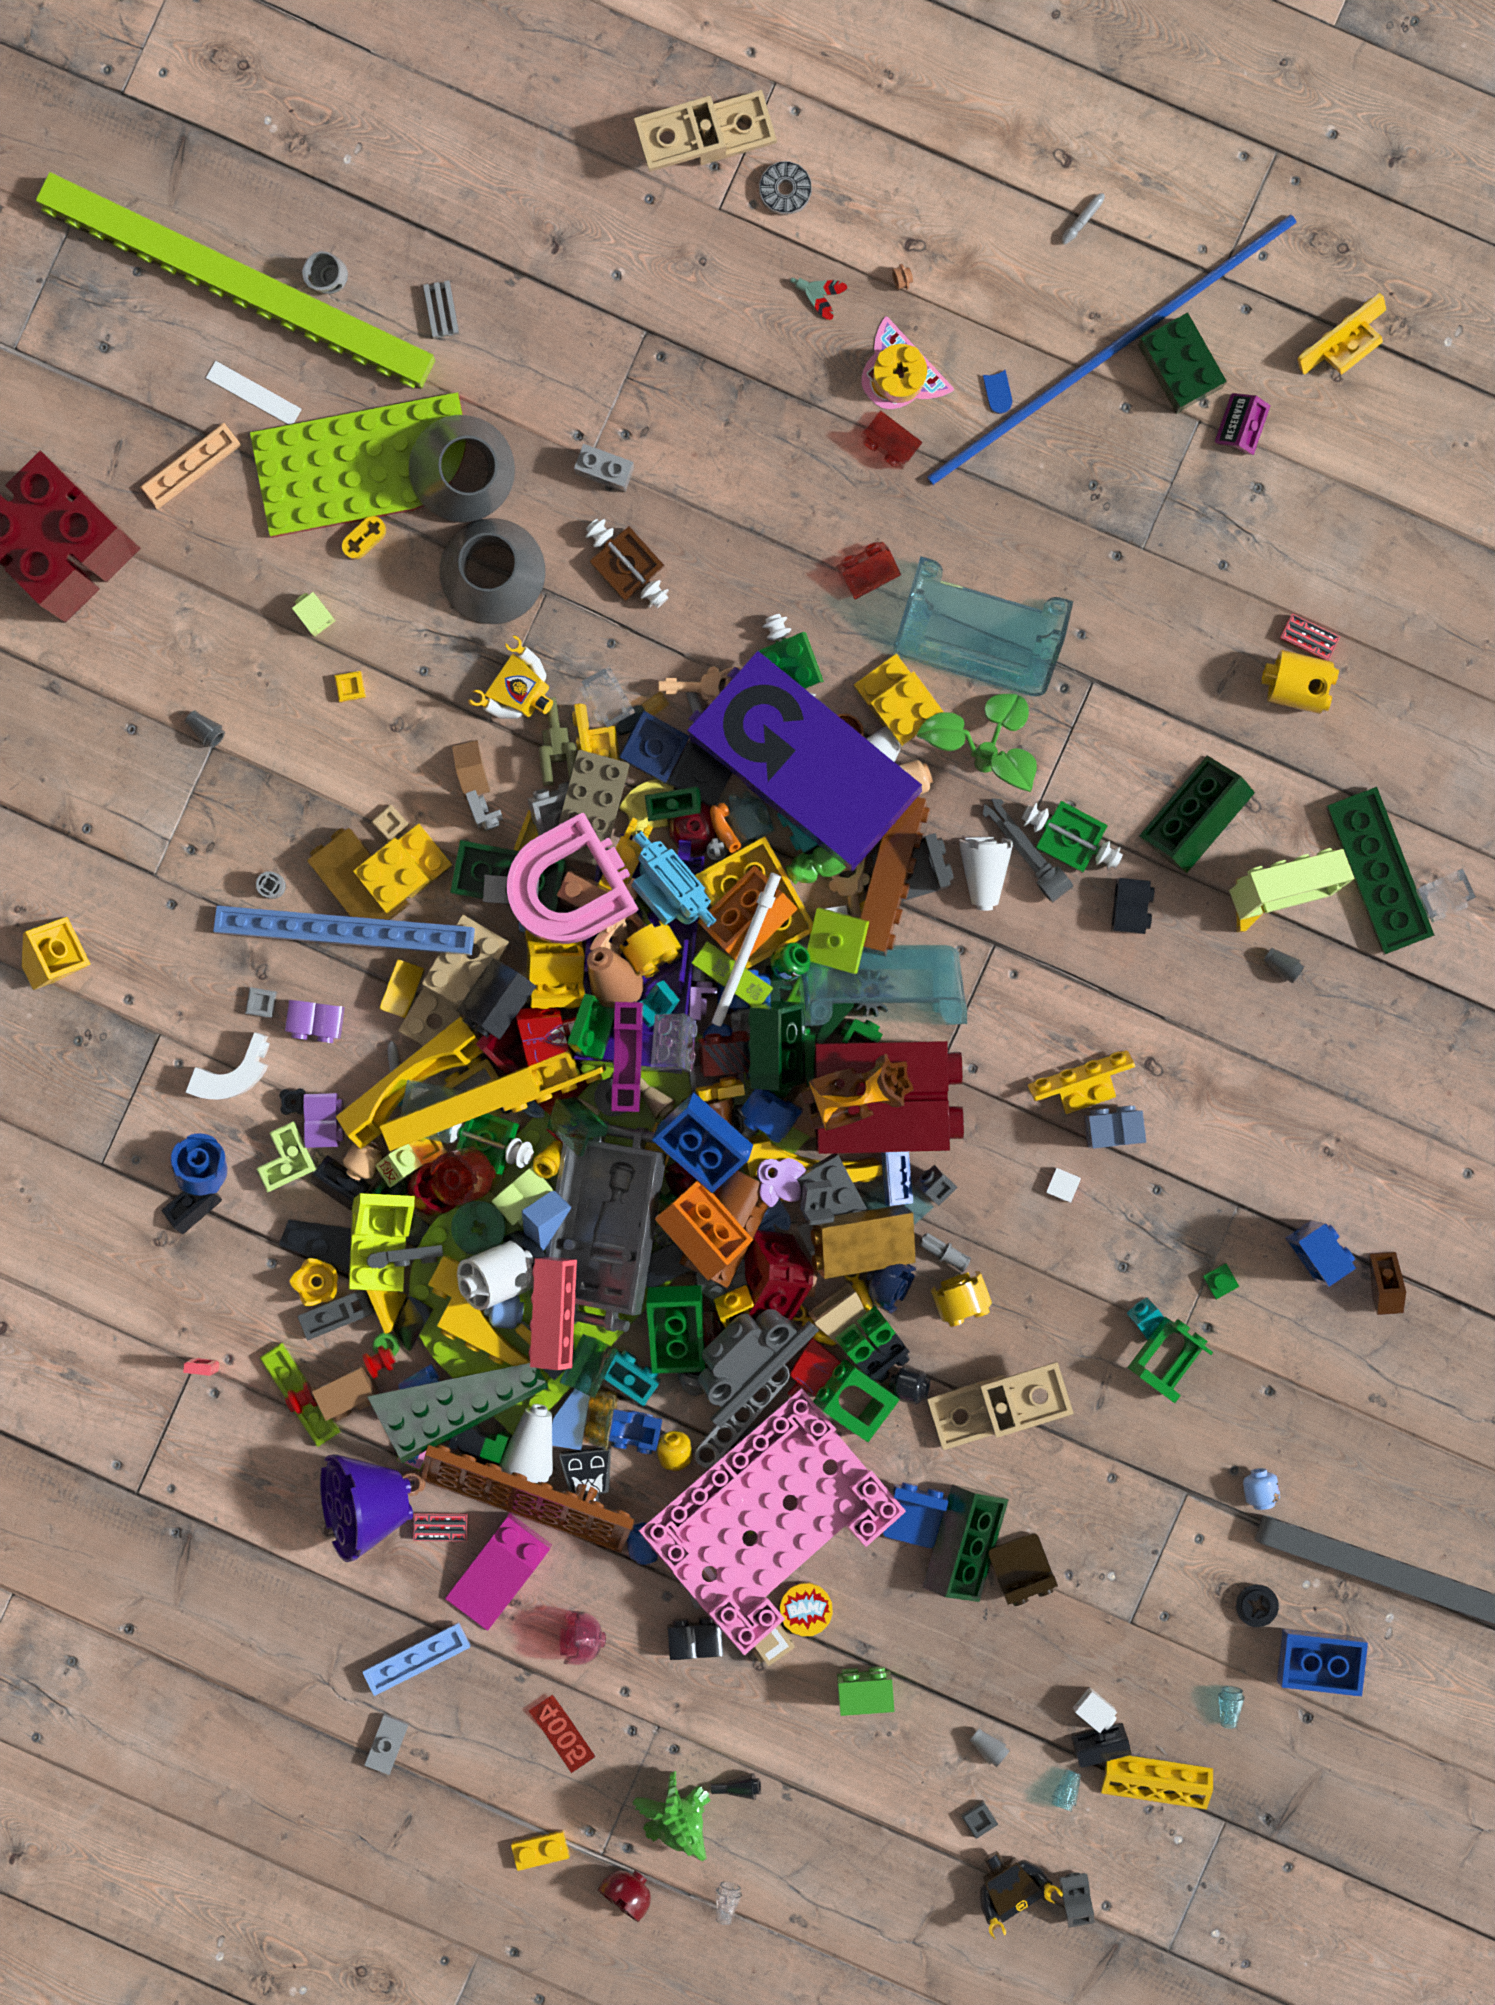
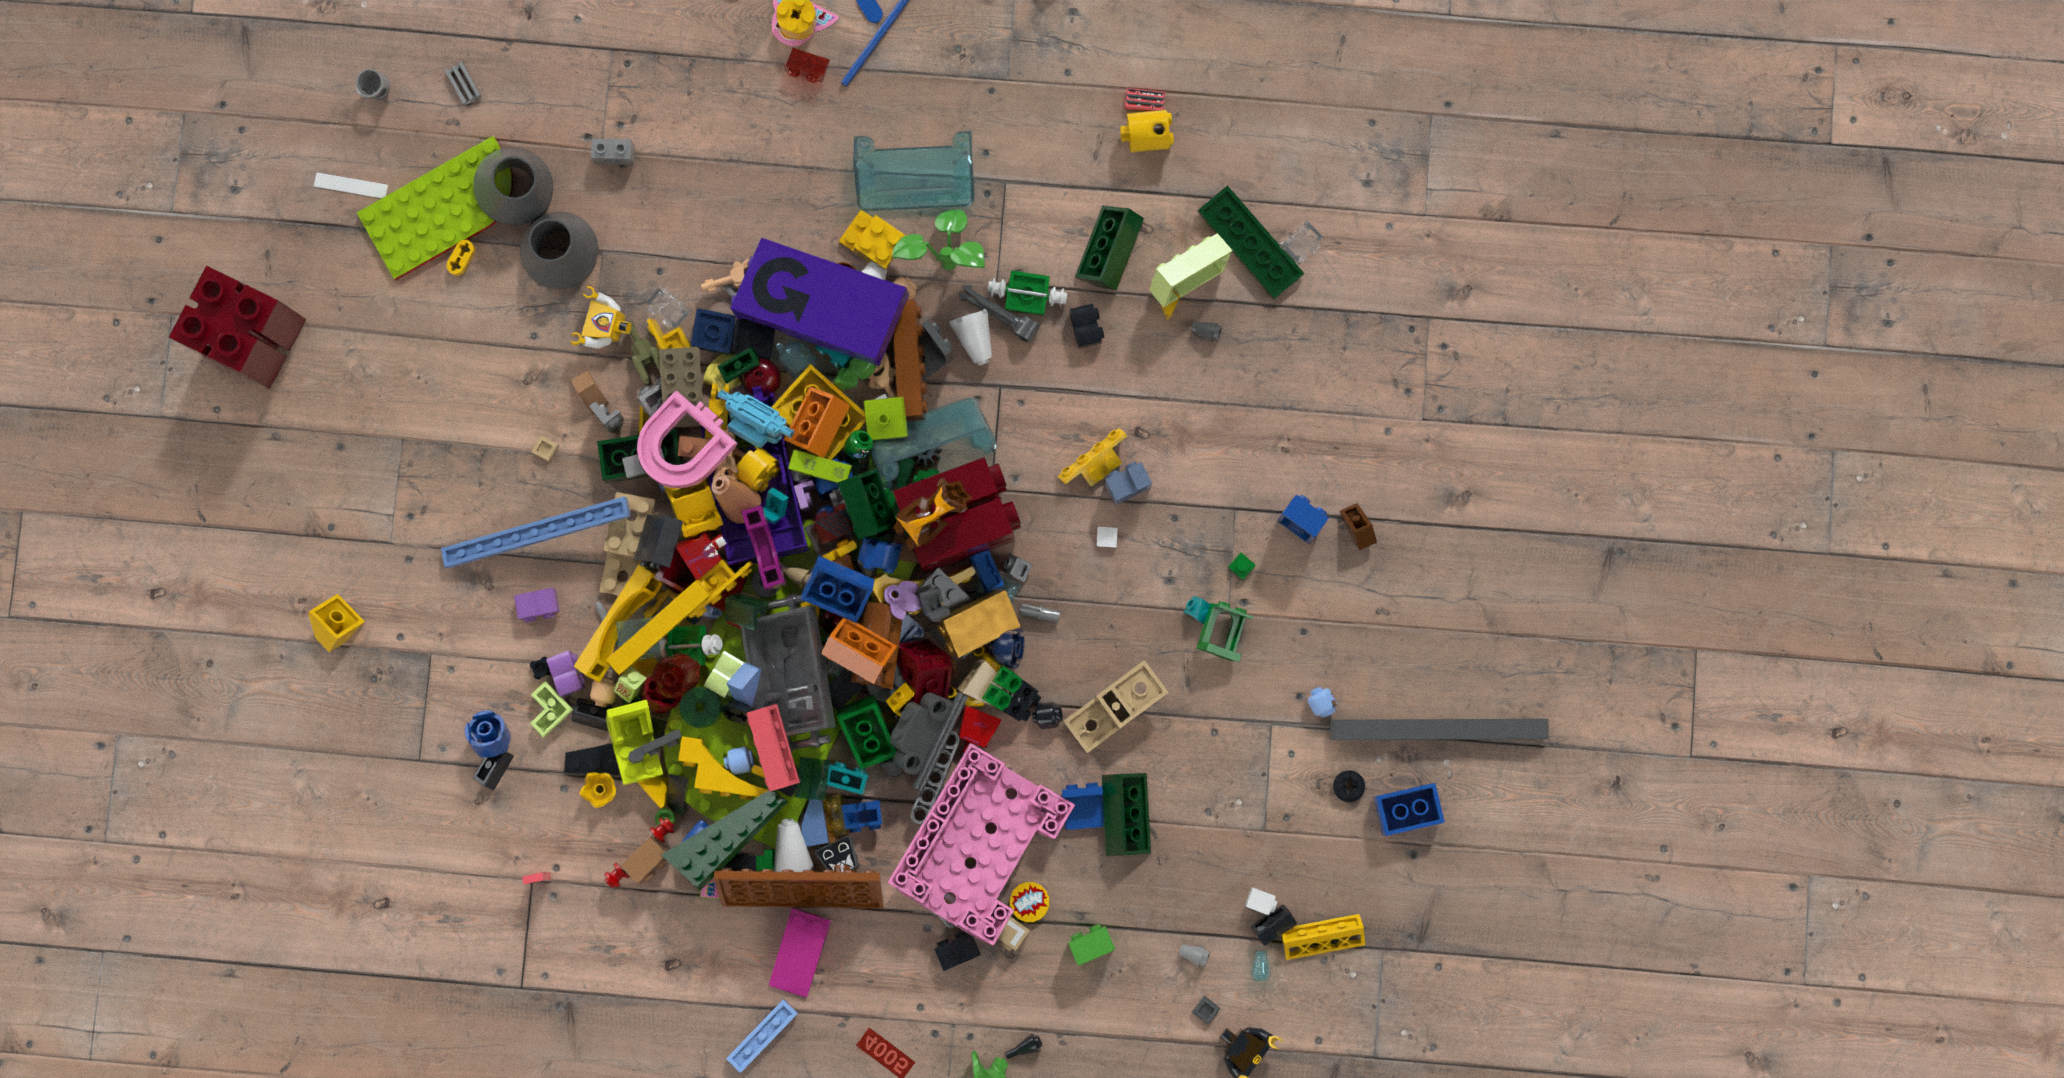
camera: 15 degrees left, 5 degrees down
(190, 466) = (322, 250): light nougat tile -> none
(207, 731) = (393, 428): dark grey cone -> none
(217, 1086) = (495, 667): white arch -> none
(235, 280) = (312, 112): lime brick -> none
(261, 1002) = (495, 606): light grey tile -> none
(275, 886) = (478, 520): light grey wheel -> none
(289, 1376) = (601, 863): lime tile -> none
(313, 613) = (442, 321): yellowish green brick -> none
(335, 1314) = (621, 808): dark grey plate -> none
(336, 866) = (533, 493): pearl gold brick -> none
(350, 686) = (485, 364): yellow tile -> none
(362, 1503) = (684, 934): dark purple cone -> none
(401, 988) = (591, 561): yellow slope -> none
(402, 868) = (564, 476): yellow bracket -> none
(419, 1482) = (711, 910): nougat plate -> none
(440, 1527) = (747, 934): tile -> none
(495, 1275) = (723, 736): white cylinder -> none
(548, 1161) = (734, 644): yellow cone -> none
(581, 1639) = (875, 978): clear pink cylinder -> none
(592, 1028) = (732, 538): green bracket -> none
(626, 563) = (651, 212): reddish brown plate -> none
(638, 1547) = (894, 898): blue head -> none
(652, 706) = (703, 303): piece -> none
(673, 1042) = (794, 527): clear bracket -> none
(674, 1450) = (896, 820): yellow head -> none
(716, 850) = (780, 385): light grey axle -> none
(722, 828) = (779, 370): orange arm -> none
(765, 901) = (823, 404): white bar -> none
(792, 654) = (788, 232): green plate -> none
(868, 569) = (821, 158): clear red bracket -> none
(874, 1413) = (1029, 743): green panel -> none
(962, 1298) = (1061, 640): yellow brick -> none
(1022, 1569) = (1173, 818): dark brown bracket -> none
(1077, 1899) = (1295, 1041): dark grey brick -> none
(1230, 1705) = (1355, 864): clear light blue cone -> none

